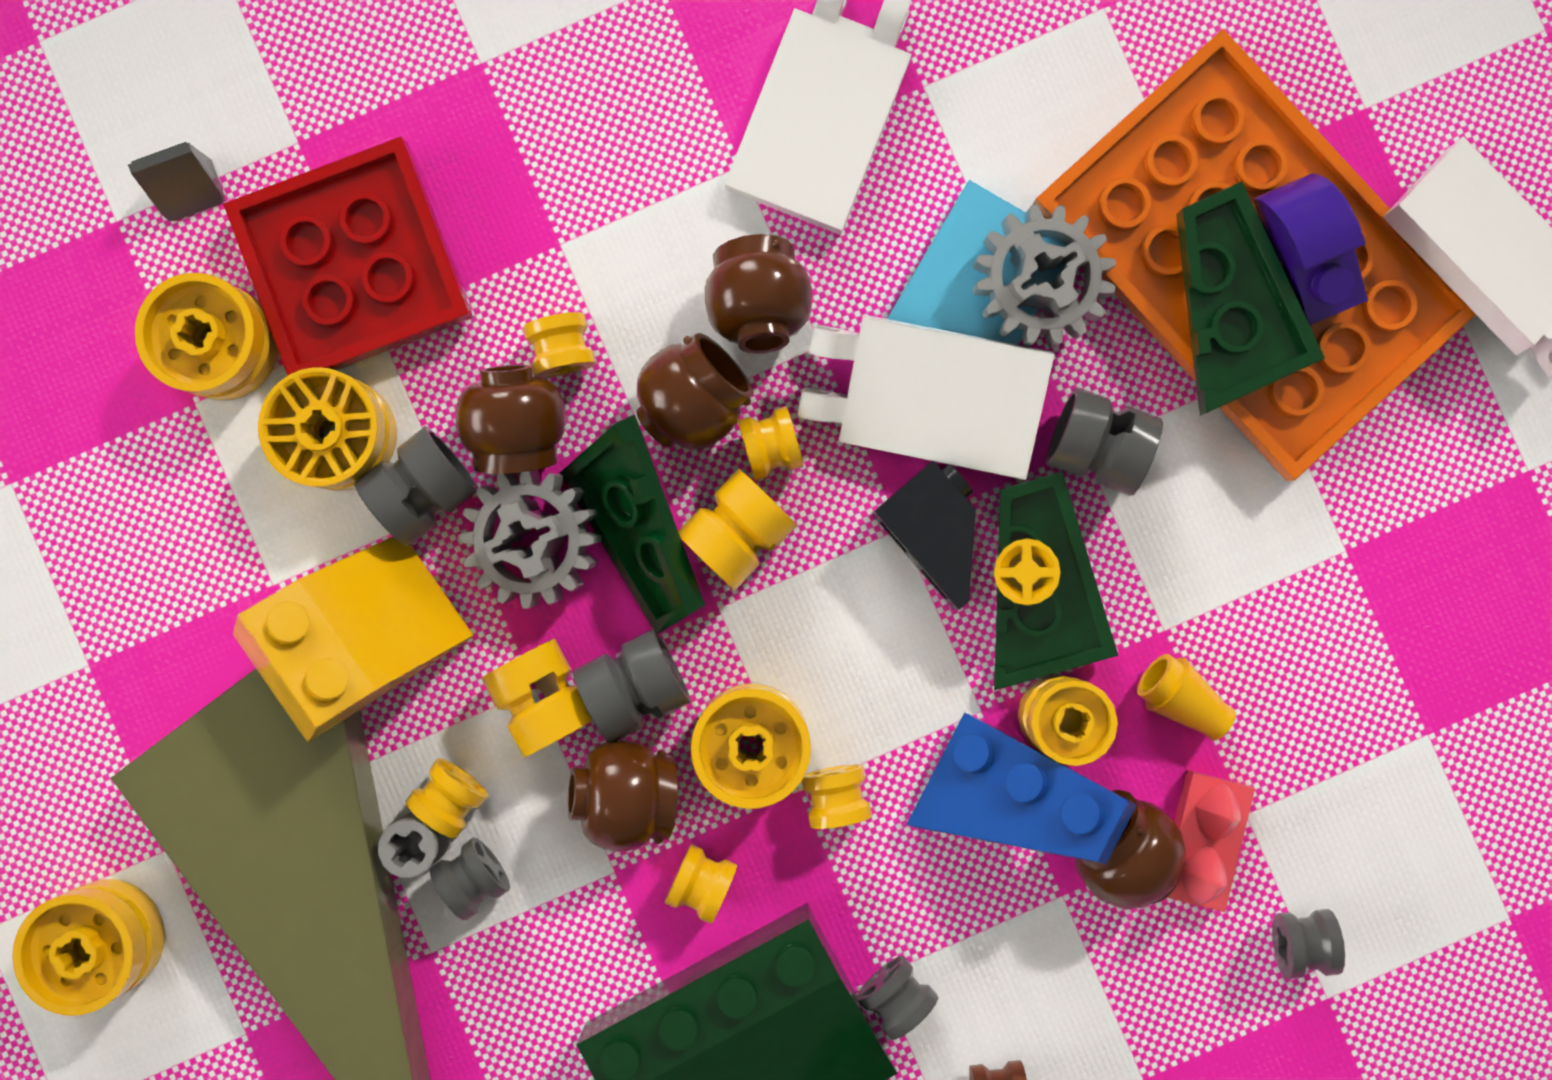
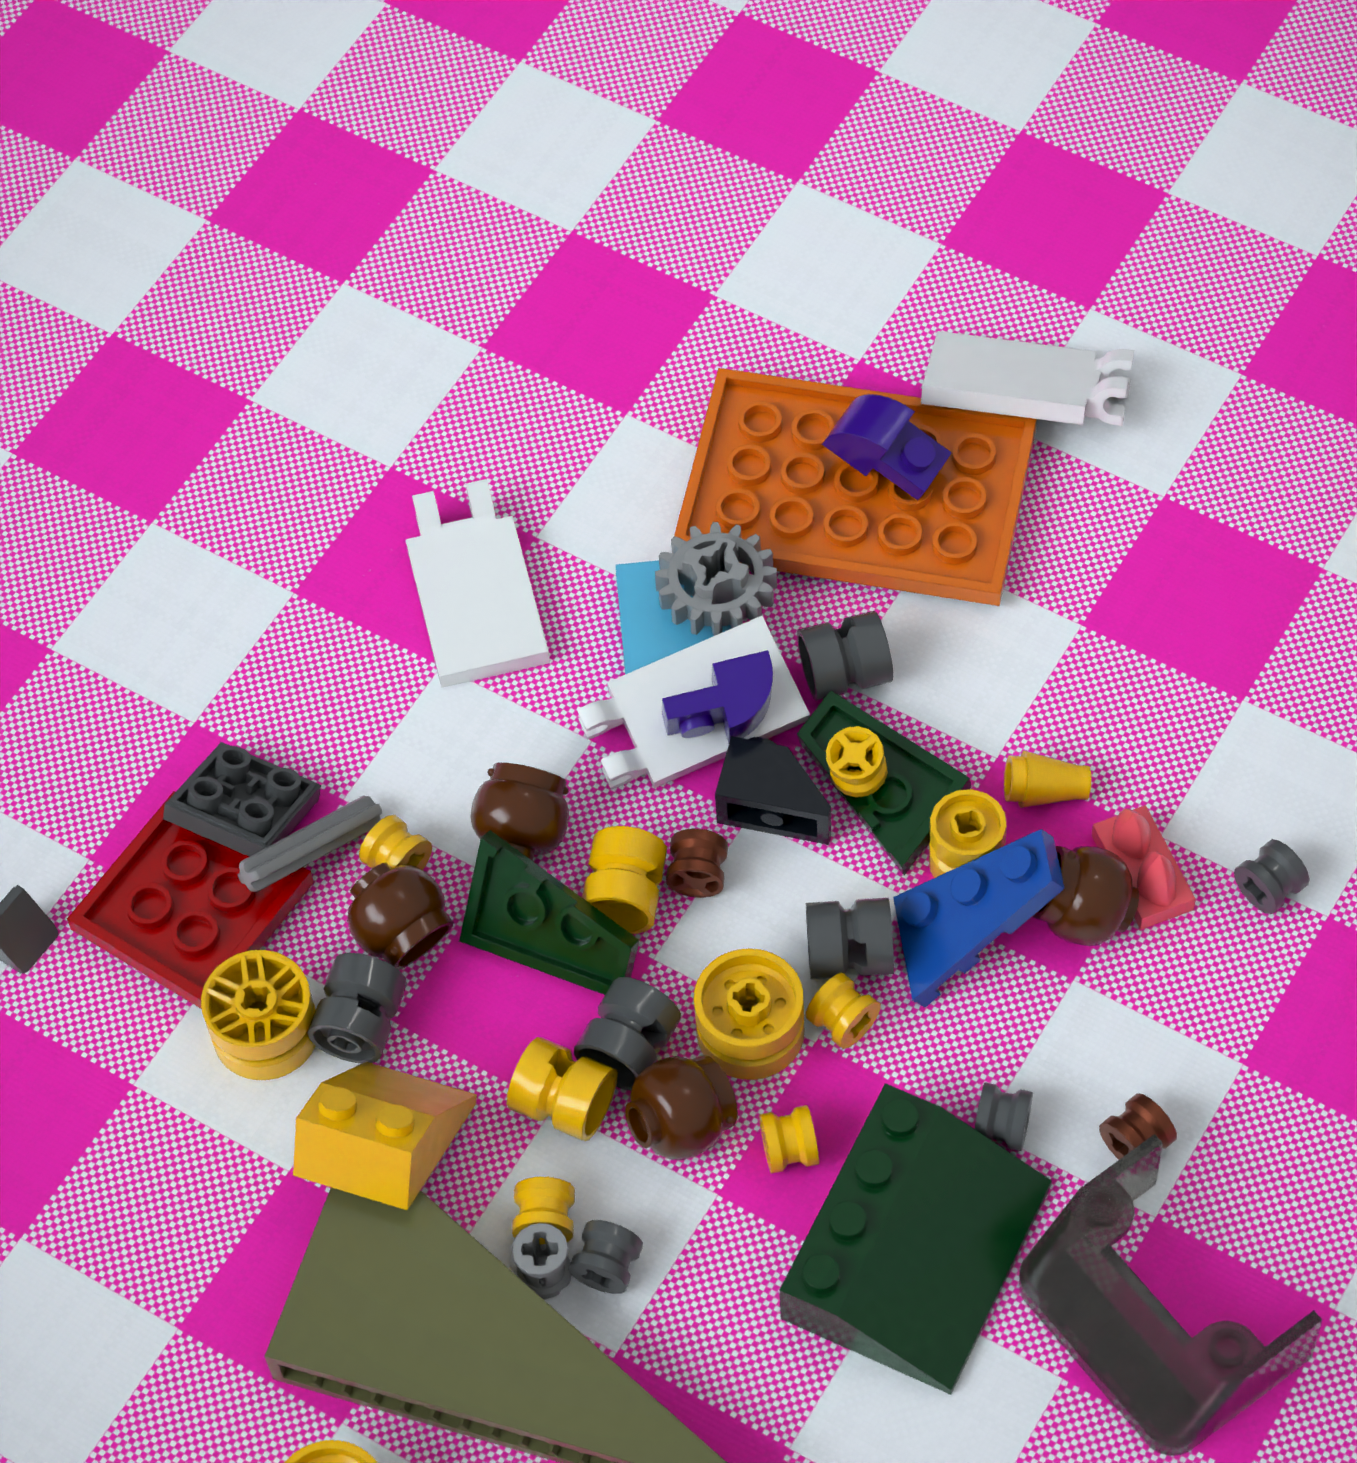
camera: 30 degrees left, 30 degrees down
(205, 337) = (119, 1012): yellow wheel -> none
(454, 193) = (241, 800): none -> dark grey tile
(481, 287) = (309, 843): none -> light grey axle
(540, 560) = (468, 962): light grey gear -> none
(758, 293) = (518, 717): reddish brown piece -> none
(771, 443) = (606, 807): yellow wheel -> none
(816, 555) = (697, 863): none -> copper wheel
(895, 737) = (850, 938): none -> dark grey wheel
(966, 433) = (736, 699): none -> dark purple brick
(1238, 301) = (864, 508): dark green wing -> none

